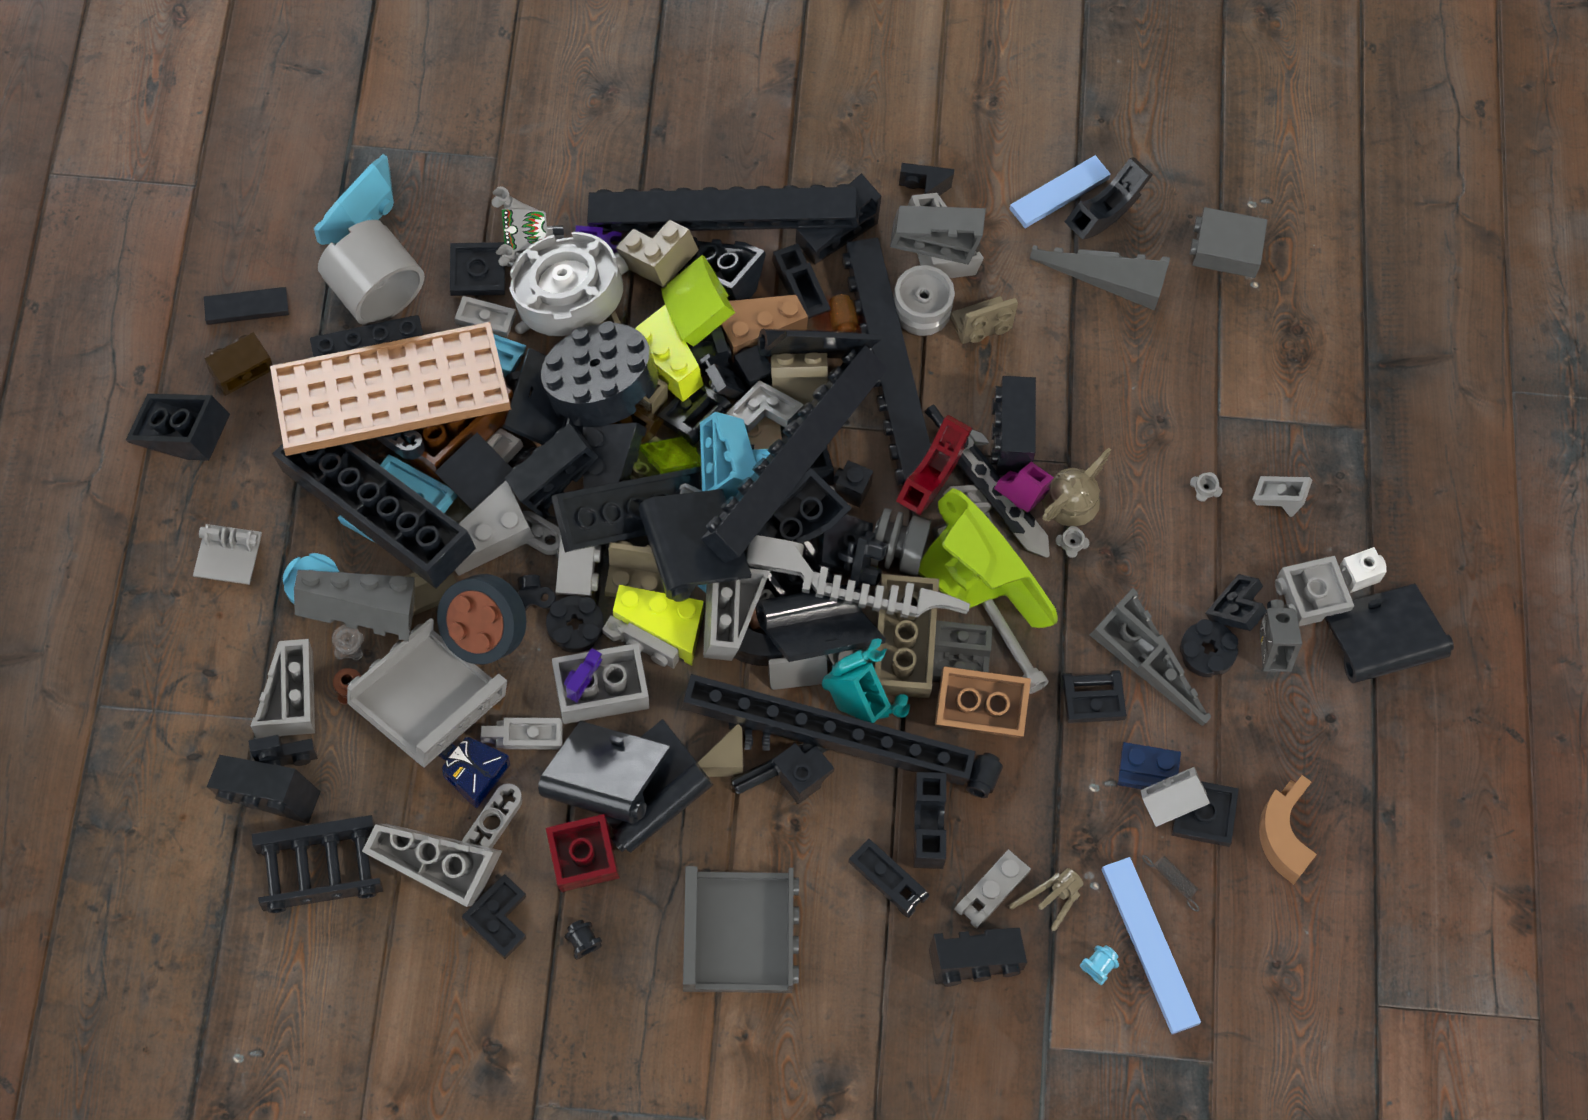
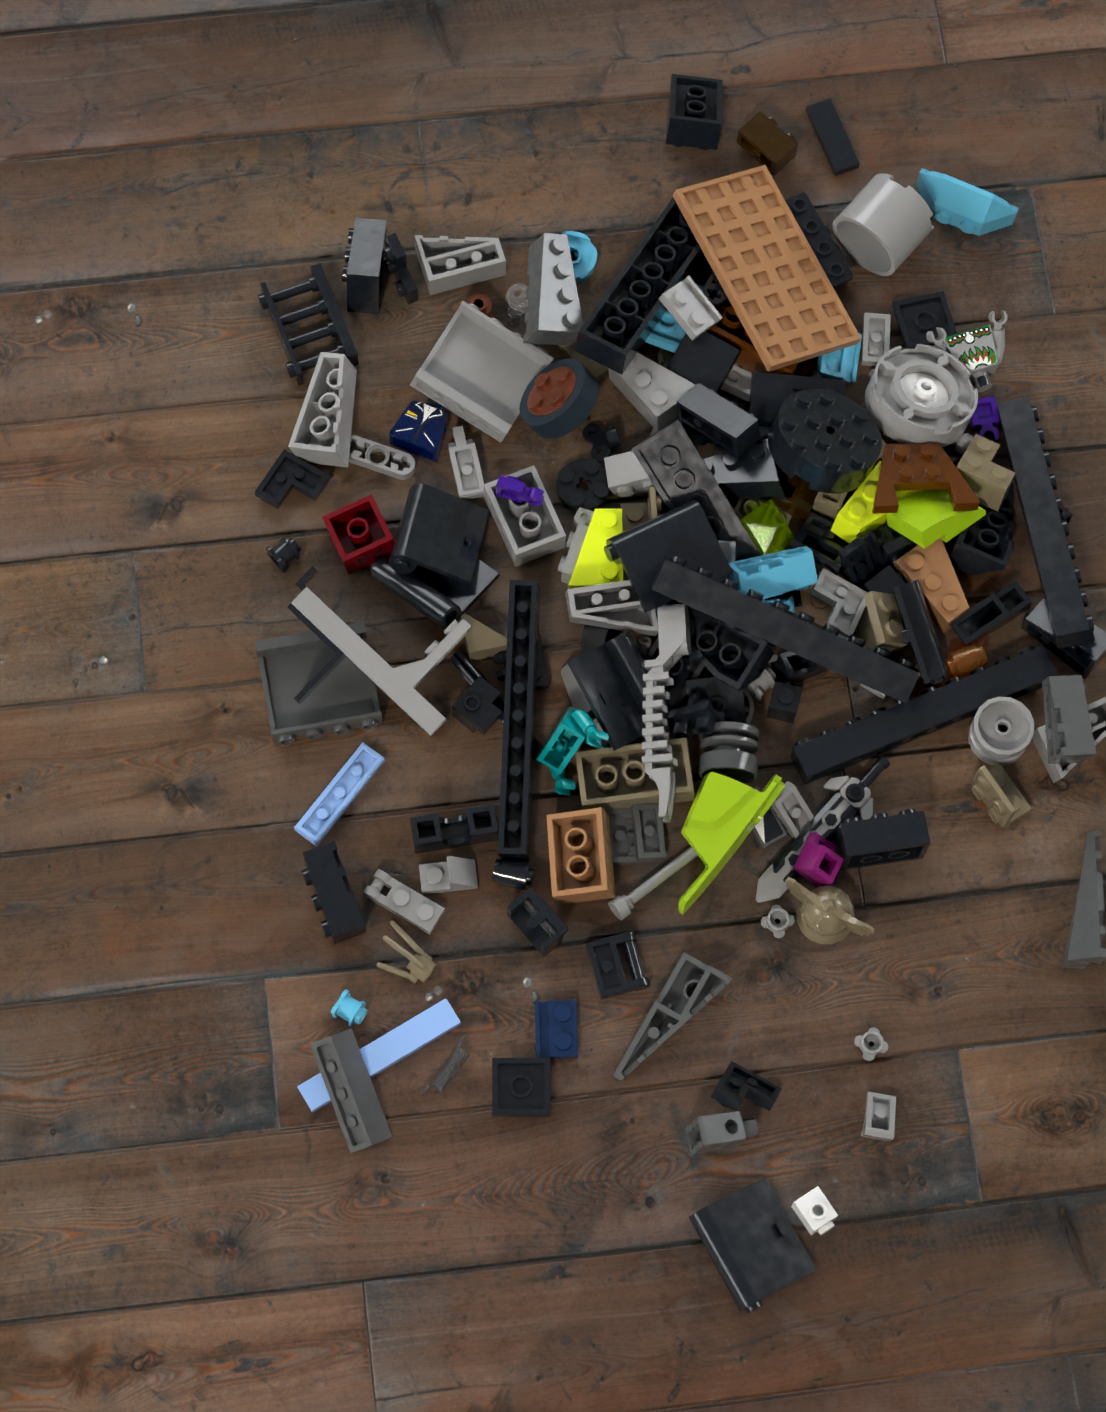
camera: 80 degrees right, 5 degrees up
(227, 554) = (582, 182): light grey hinge -> none
(422, 464) = (690, 308): none -> light grey plate
(647, 299) = (920, 468): none -> reddish brown wing
(763, 840) = (396, 682): none -> light grey piece
(863, 933) = (339, 794): none -> light blue tile
(888, 877) = (395, 804): black plate -> none
(936, 467) = (806, 766): dark red arch -> none
(973, 841) = (448, 876): none -> light grey slope
(1043, 758) = (537, 921): none -> black window
(1175, 796) = (526, 1052): light grey hinge -> none
(1190, 977) = (351, 1090): none -> dark grey panel
(1209, 633) = (679, 1077): black plate -> none
(1276, 836) = (516, 1156): medium nougat arch -> none
(1314, 590) = (777, 1163): light grey plate -> none

